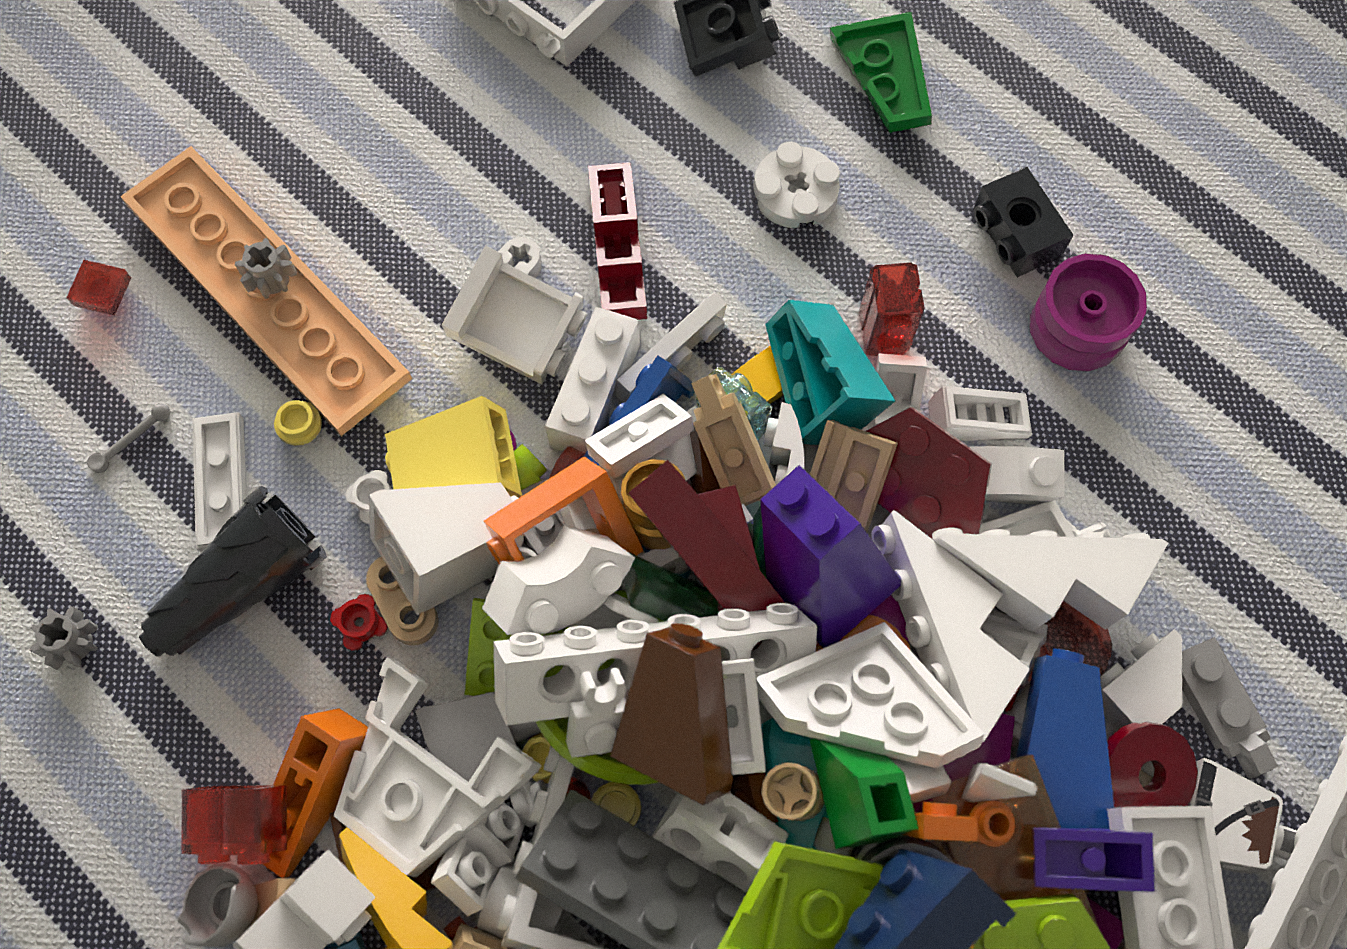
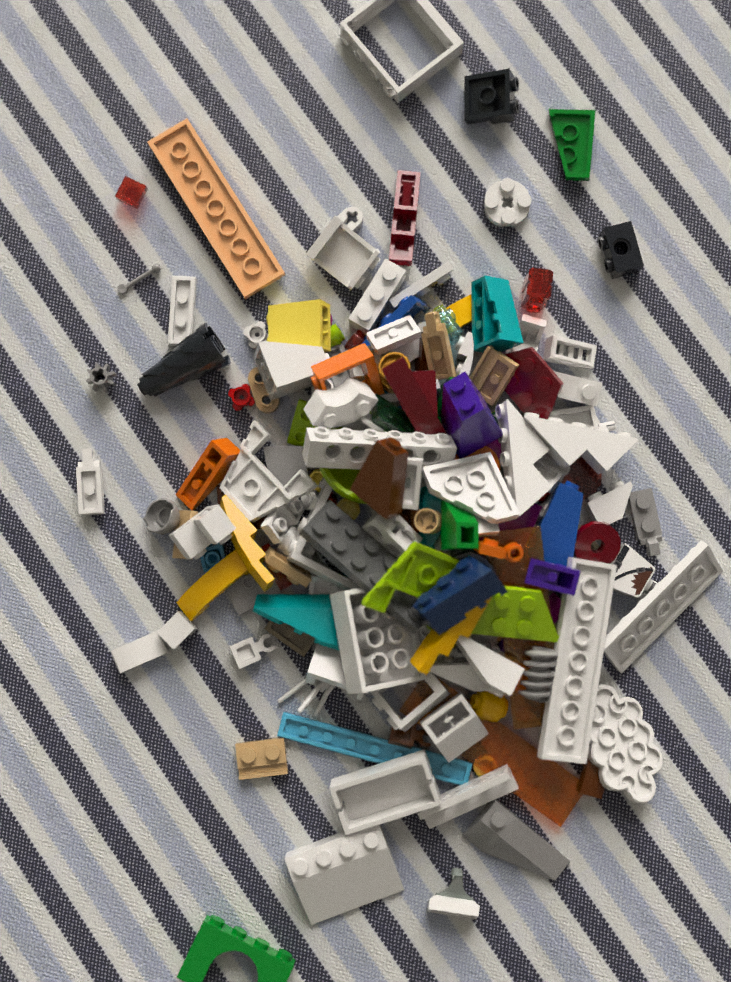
camera: 15 degrees right, 15 degrees up
(55, 868) = (90, 484): none -> white hinge
(234, 822) = (173, 480): clear red brick -> none
(265, 268) = (216, 207): light grey gear -> none
(297, 422) = (224, 288): light yellow plate -> none
(597, 719) = (346, 472): white plate -> none
(993, 783) = (518, 536): white slope -> none
(1088, 312) = (652, 308): magenta wheel -> none

